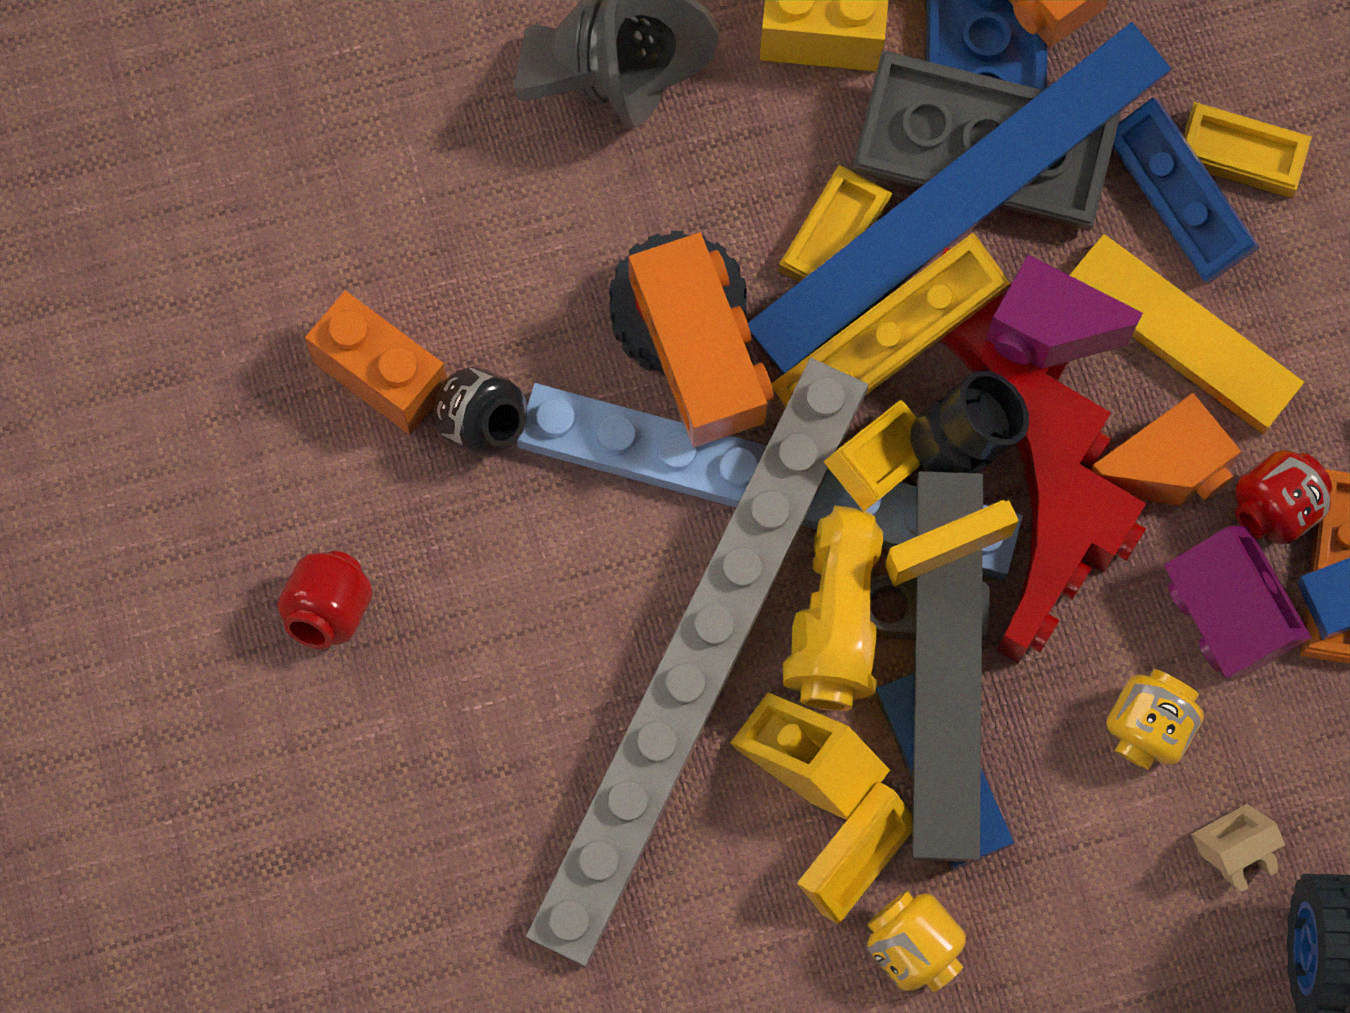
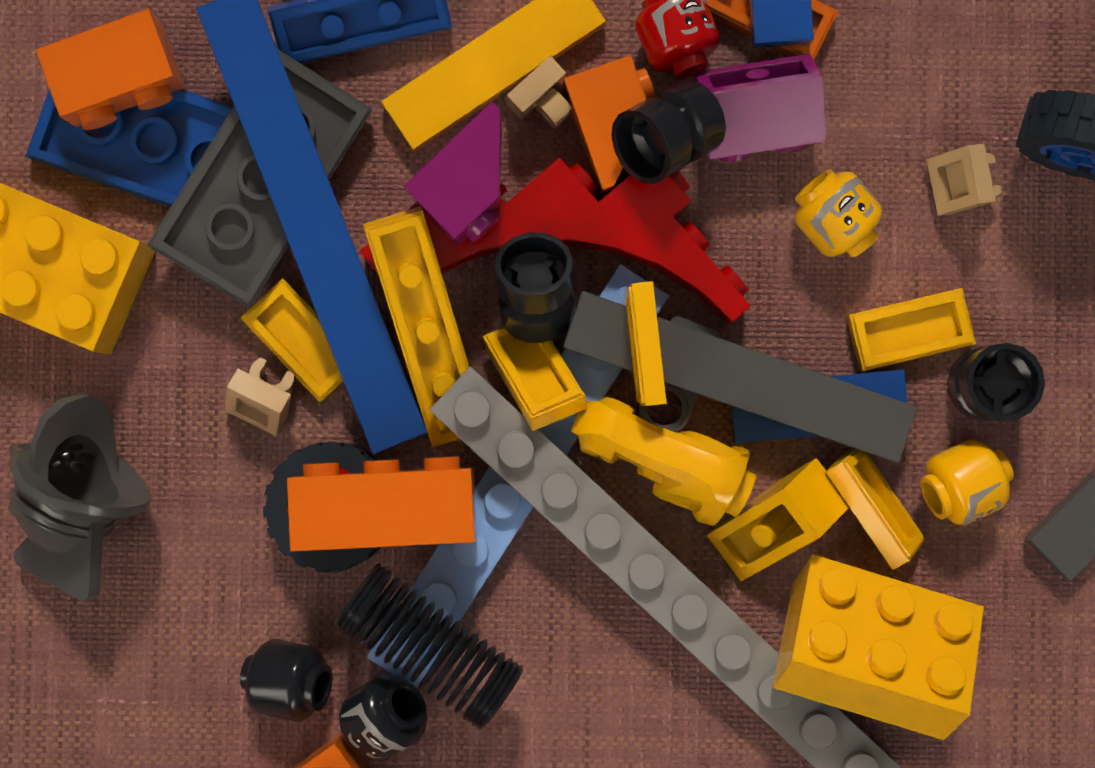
camera: 75 degrees left, 15 degrees up
(488, 310) = (286, 680): none -> black head
(546, 500) = (364, 608): none -> black piece
(710, 887) = (879, 648): none -> yellow brick
(762, 202) = (257, 400): none -> tan tile
(1034, 936) = (996, 382): none -> black wheel
(1059, 842) = (910, 329): none -> yellow tile
(1169, 380) = (540, 92): none -> tan tile
(1170, 497) = (668, 131): none -> black wheel

